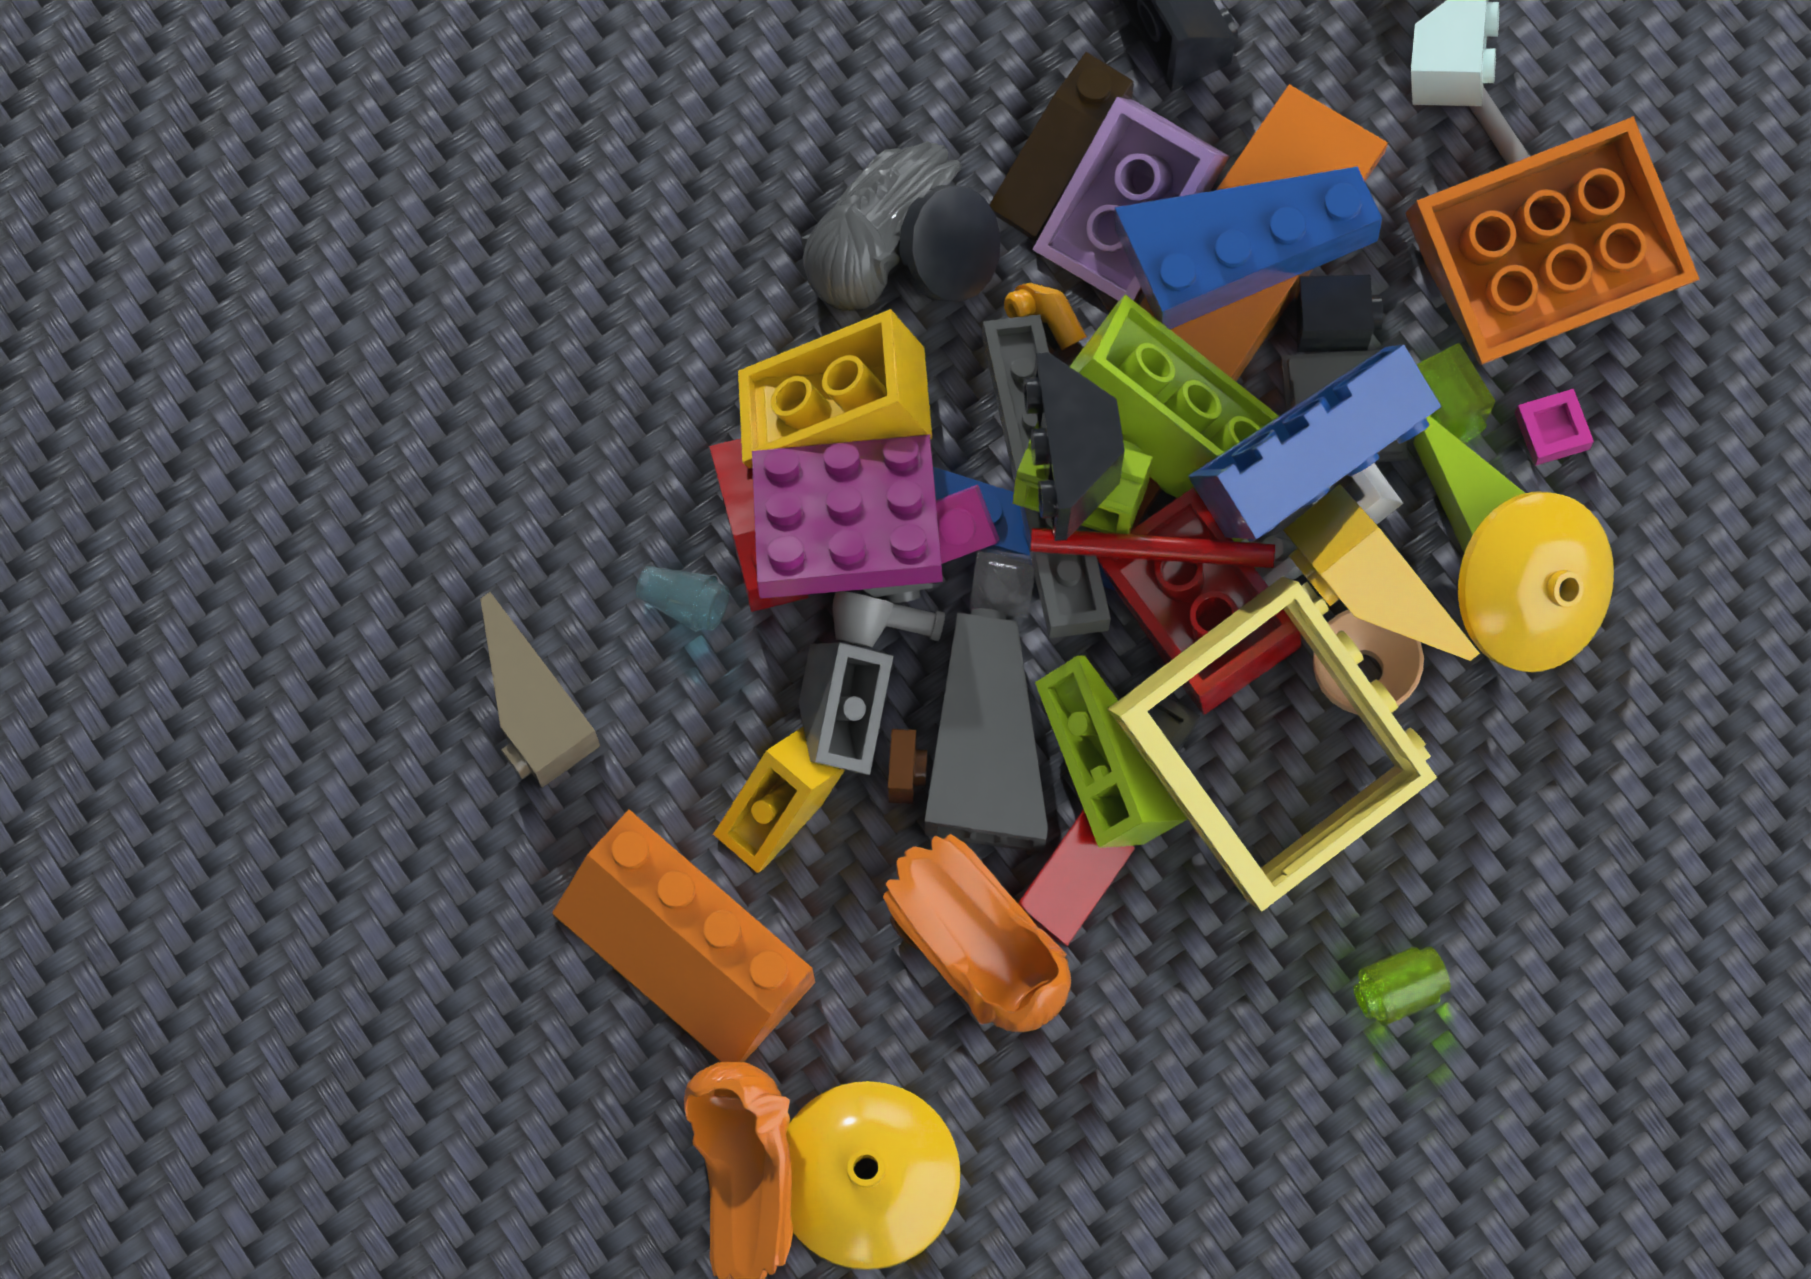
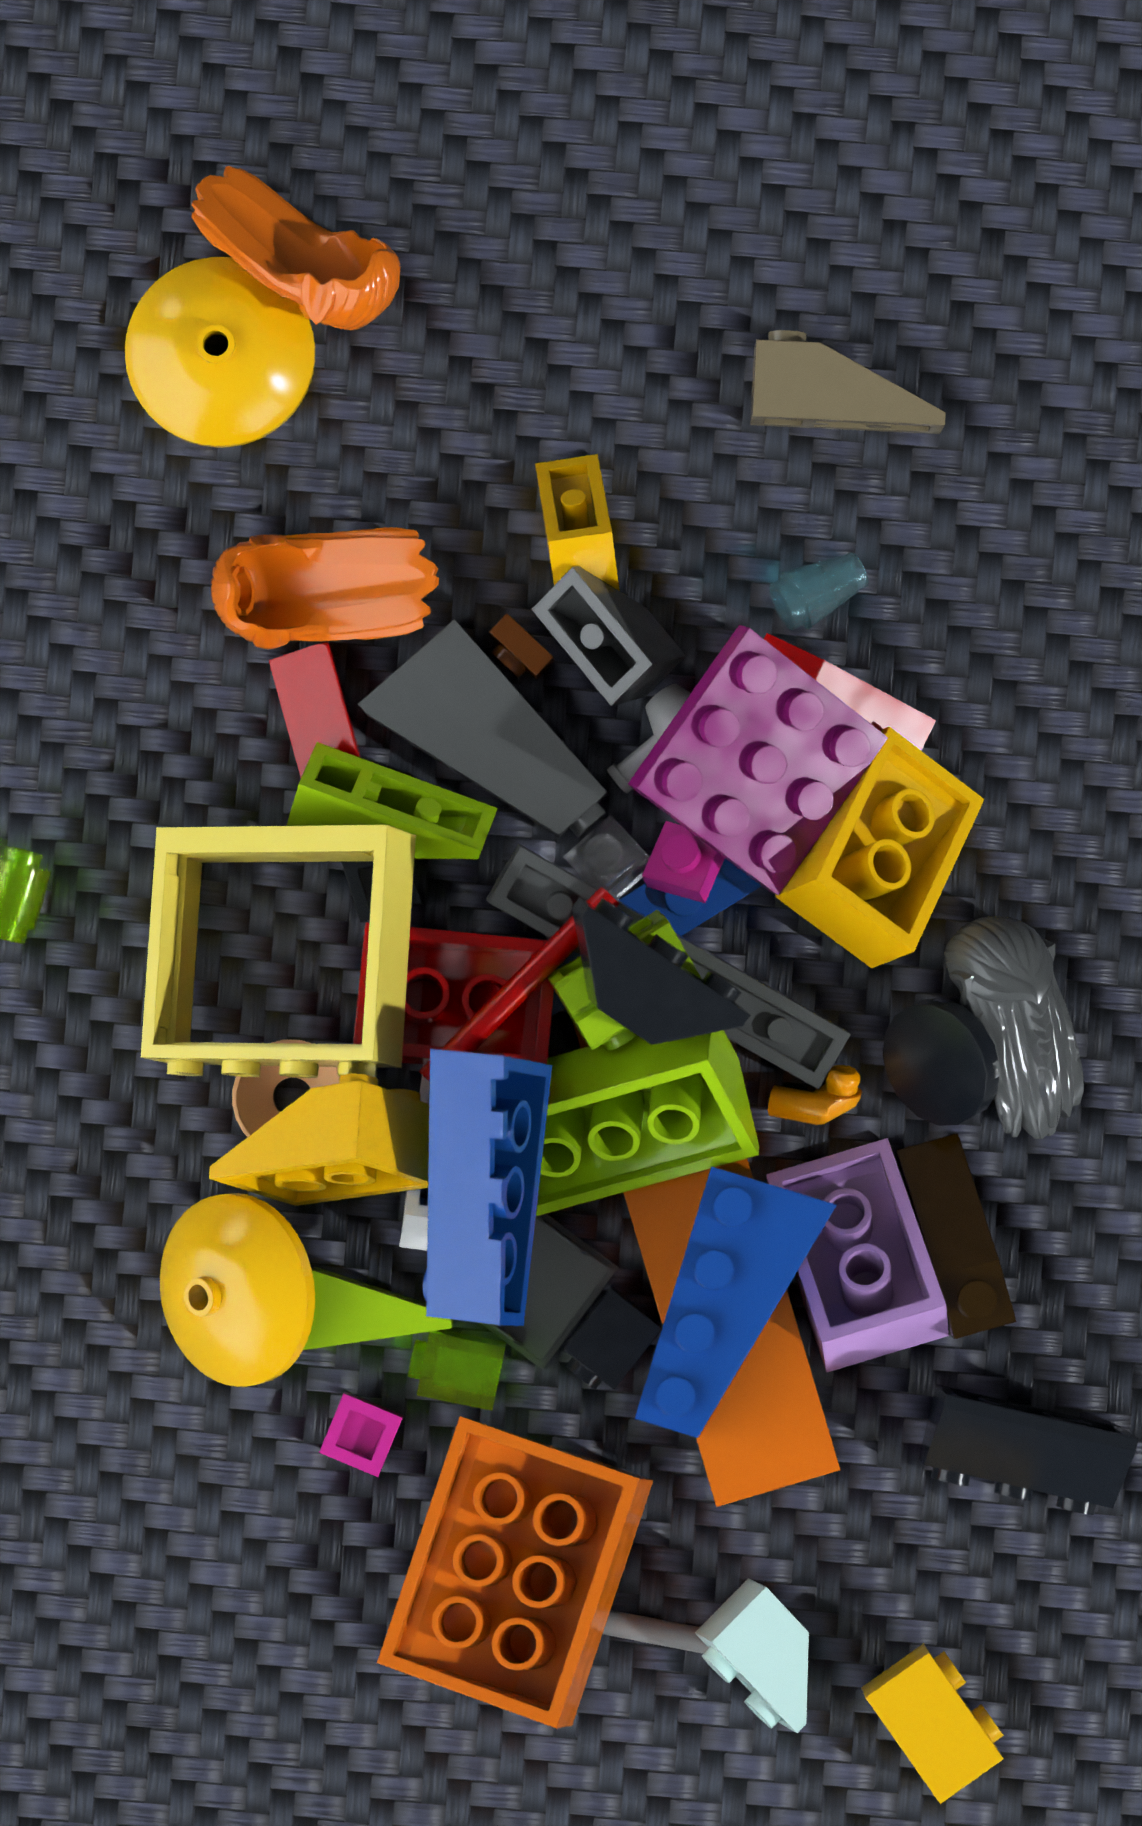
camera: 130 degrees right, 15 degrees up
(682, 941) = (524, 355): orange slope -> none

